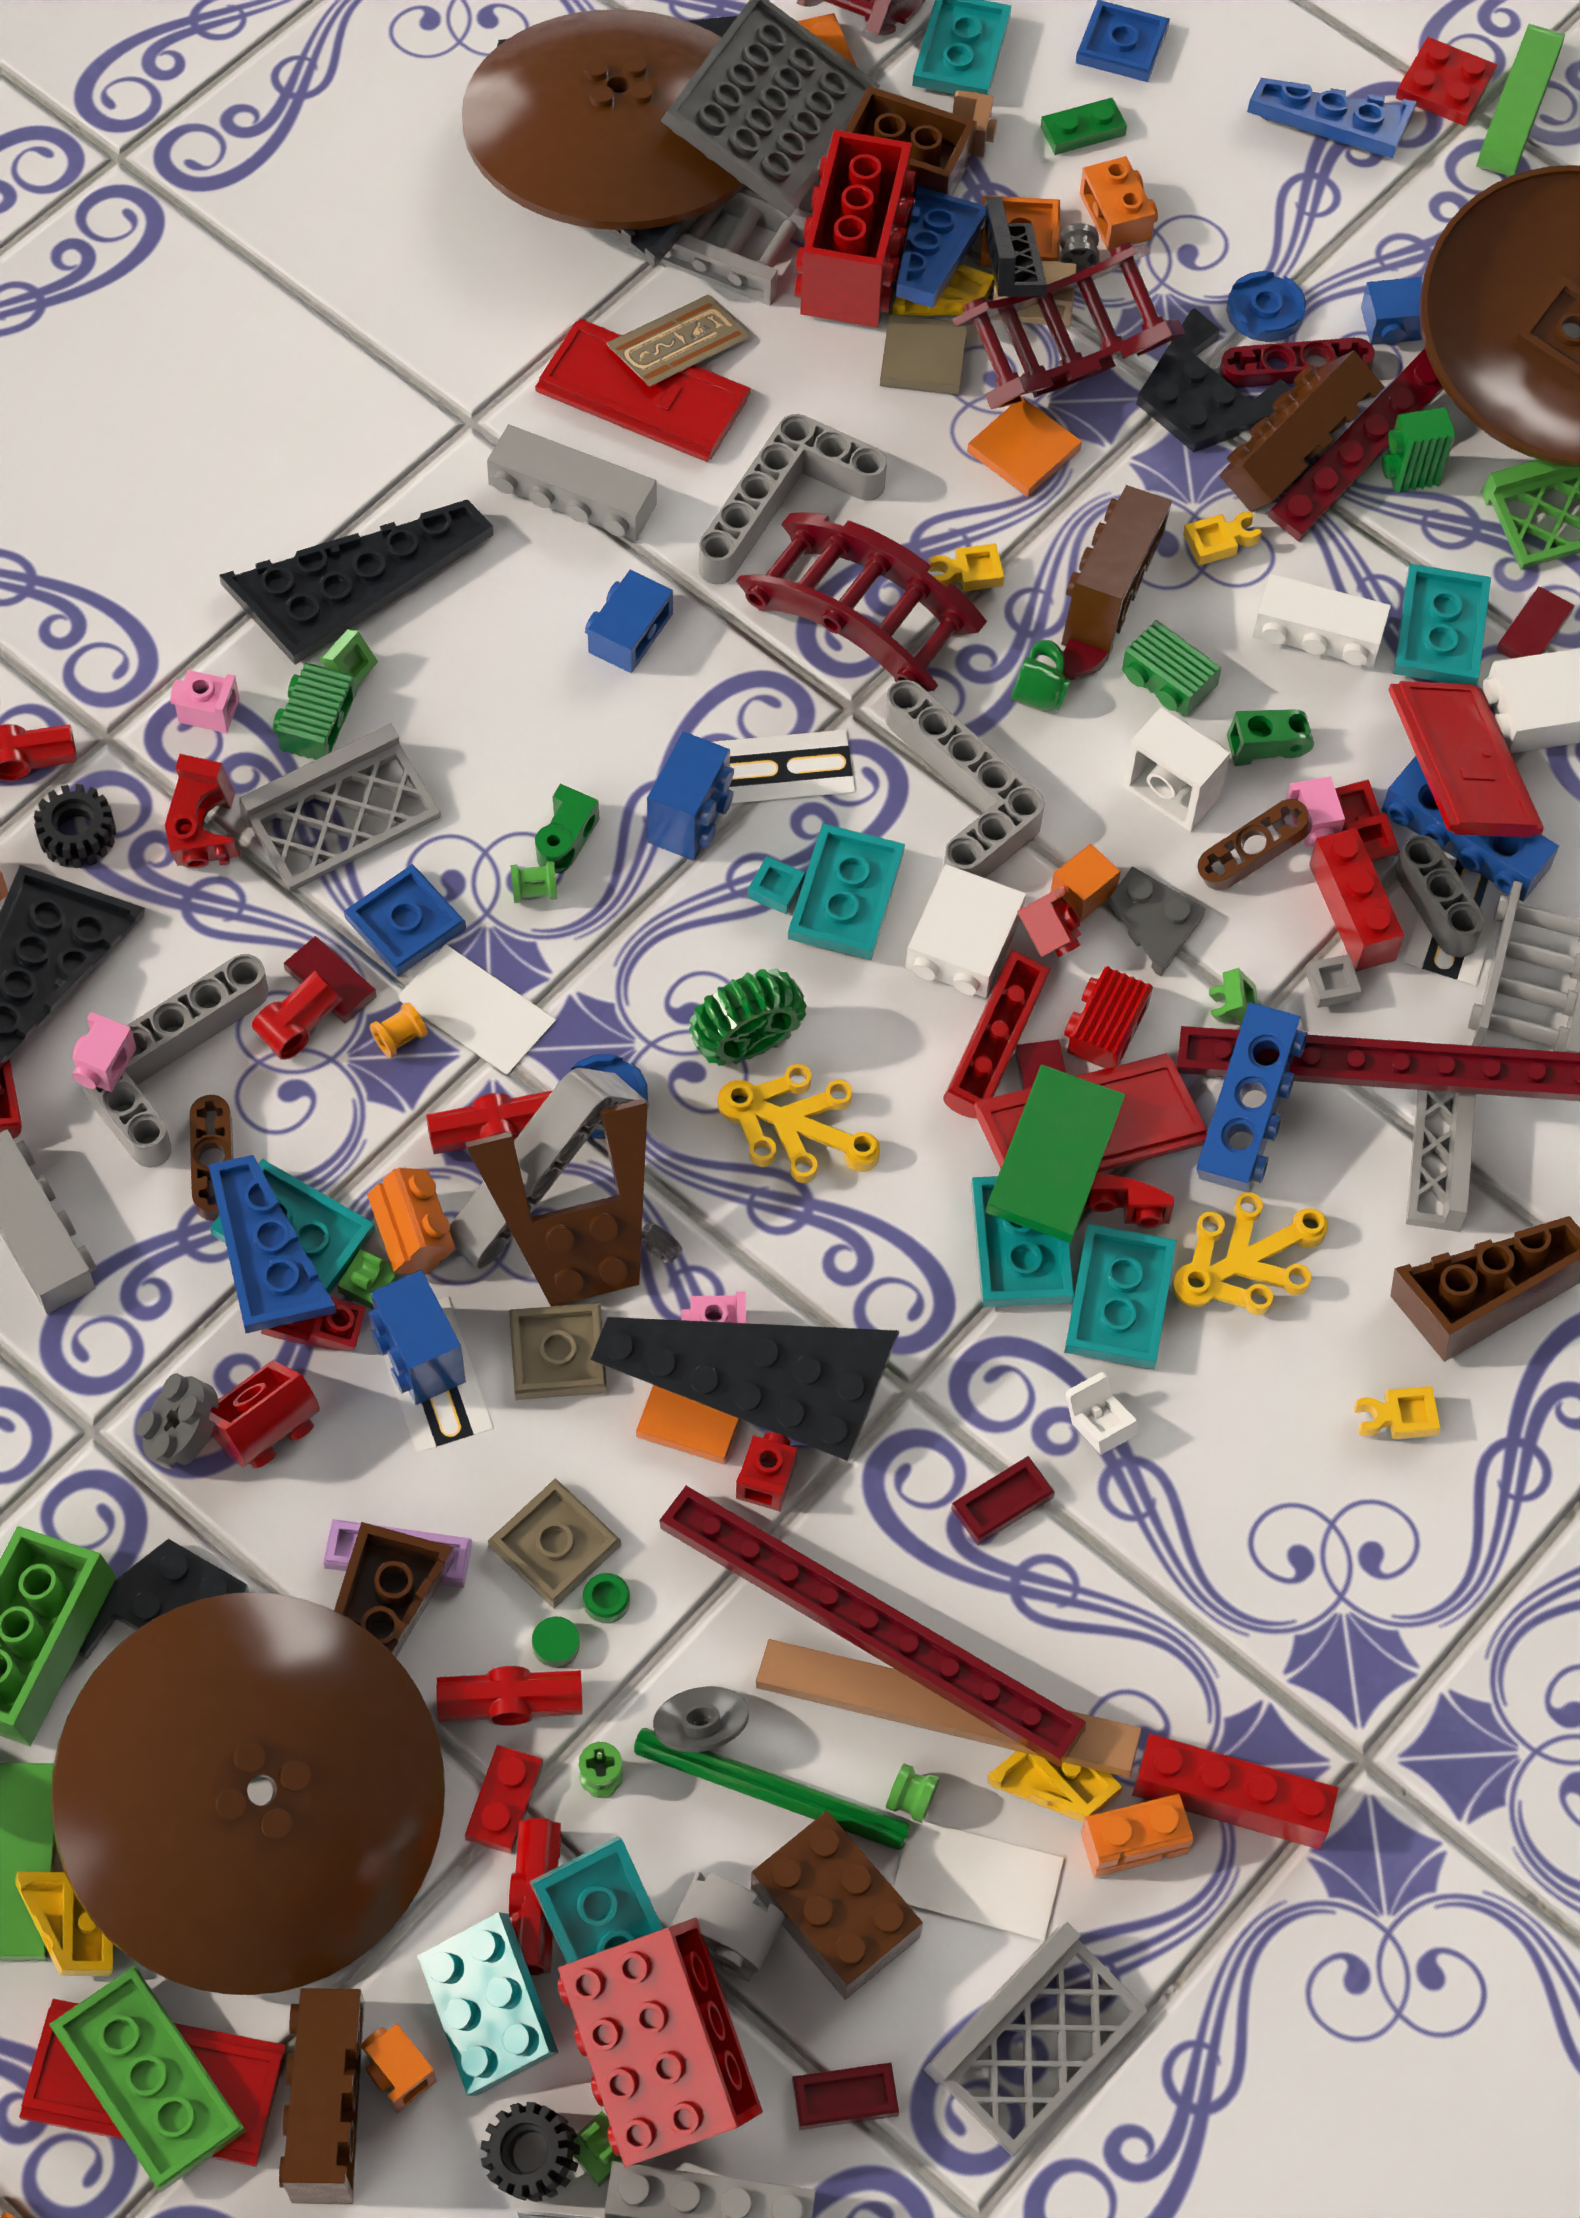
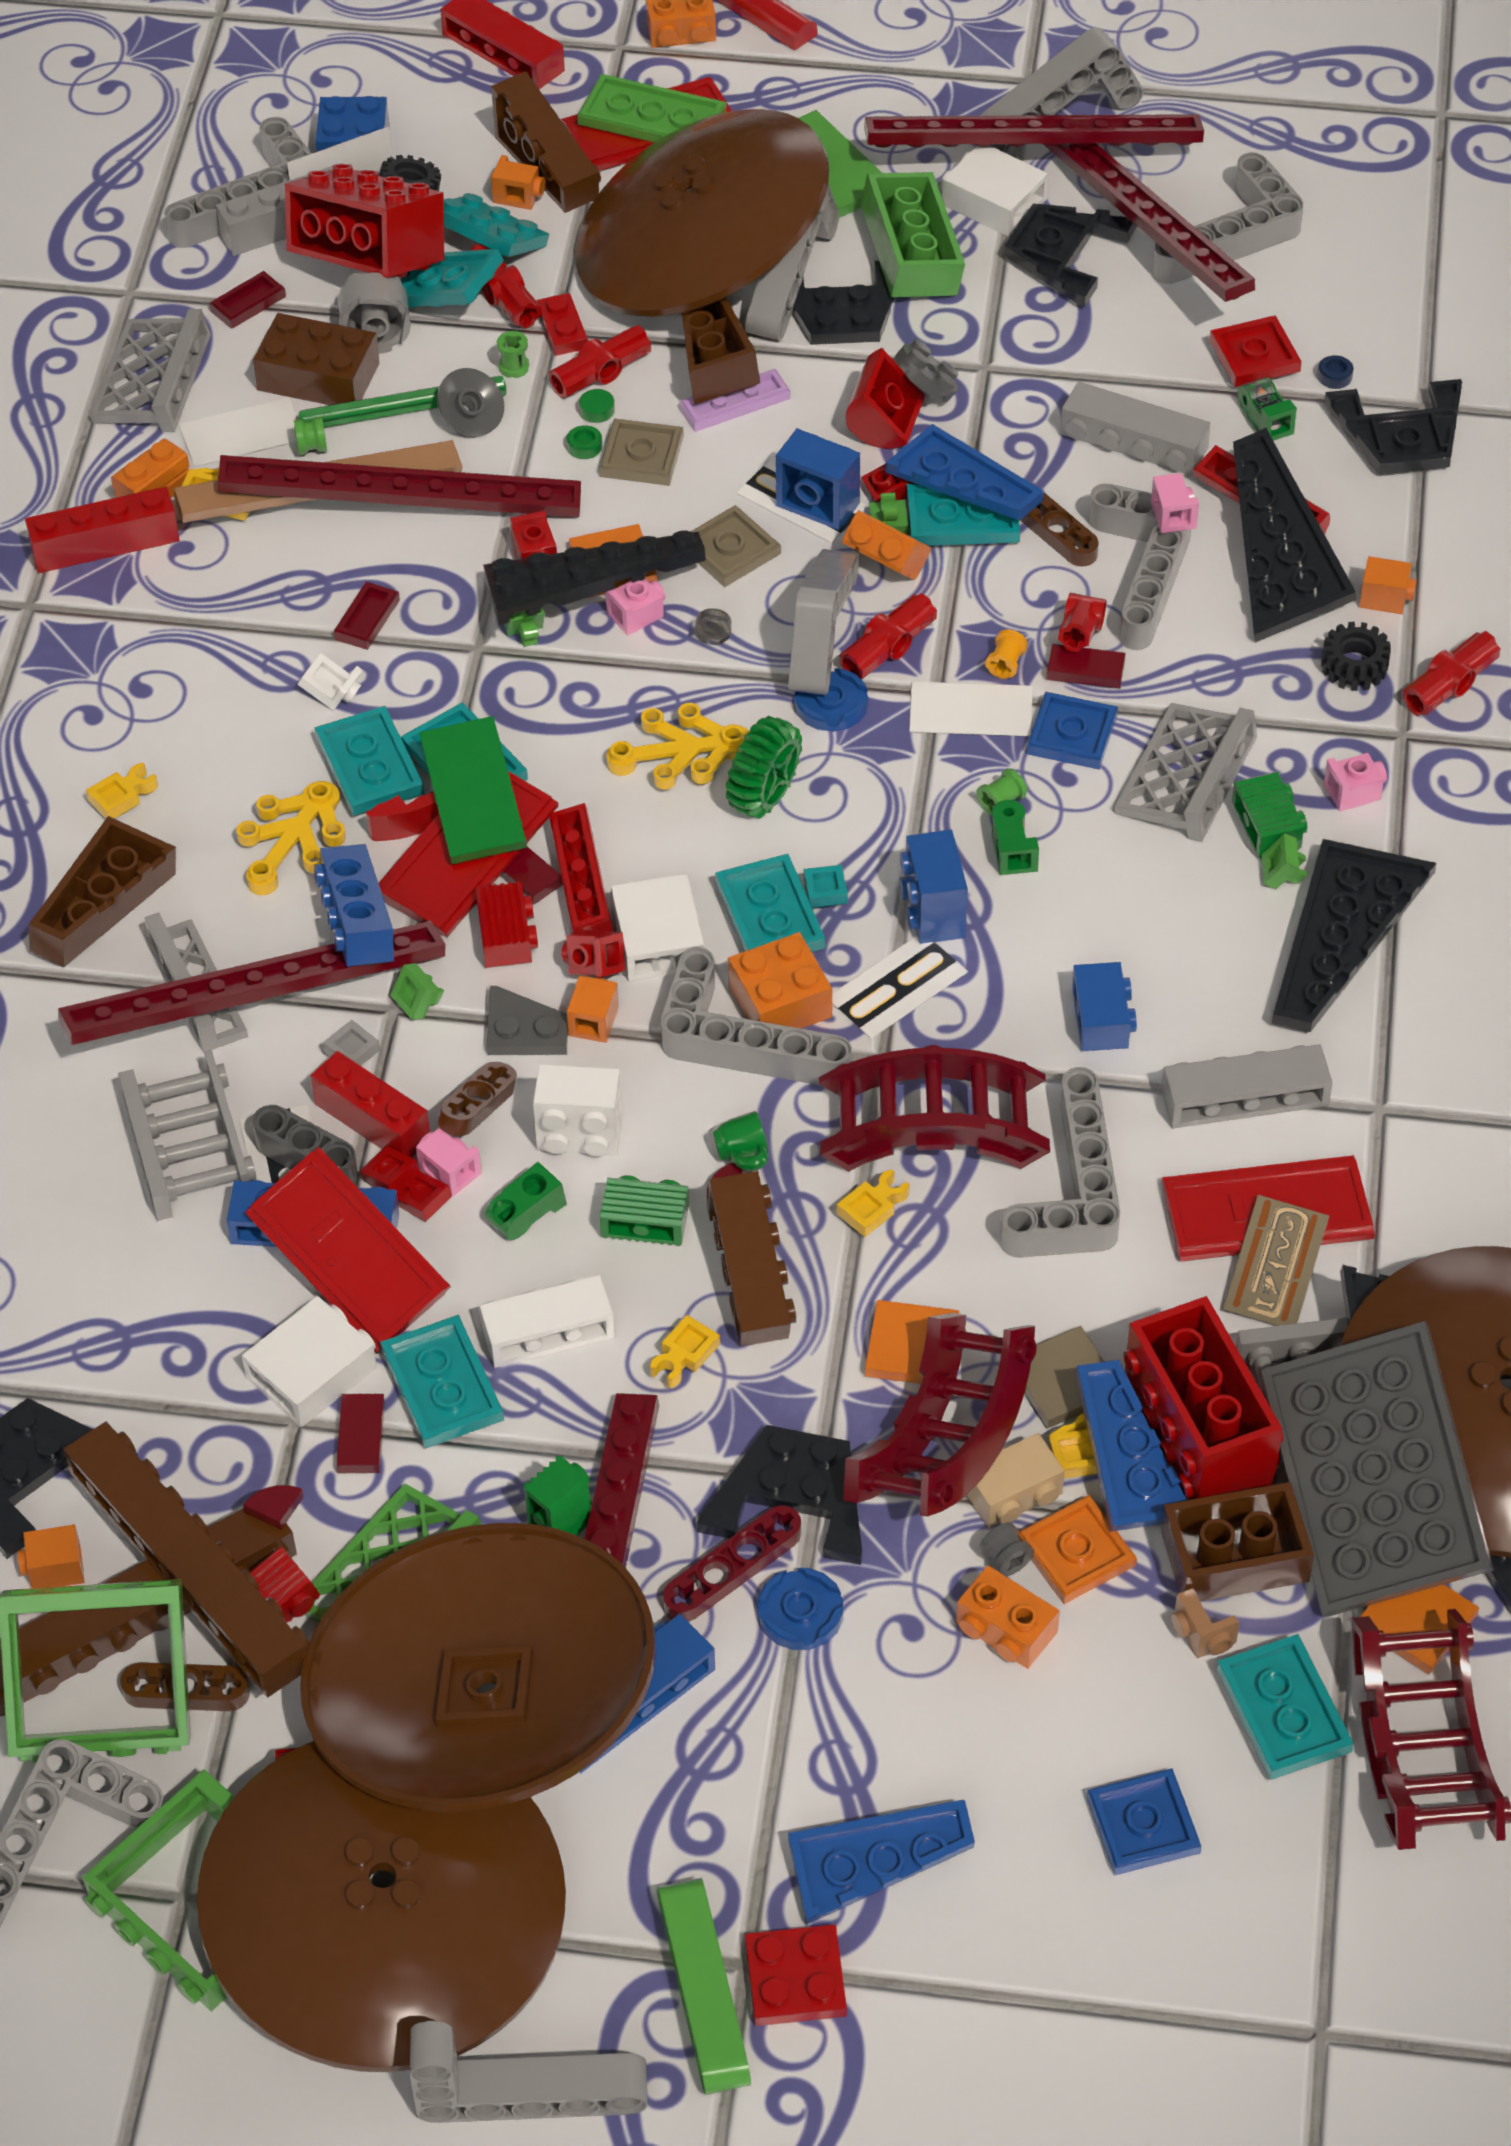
camera: 150 degrees right, 10 degrees down
(198, 790) = (1274, 686): red tile -> none
(583, 1246) = (758, 584): reddish brown wing -> none
(902, 797) = (781, 984): none -> orange brick
(1003, 242) = (1058, 1445): black fence -> none
(1083, 126) = (1106, 1698): green plate -> none
(1298, 428) = (678, 1465): reddish brown wedge -> none

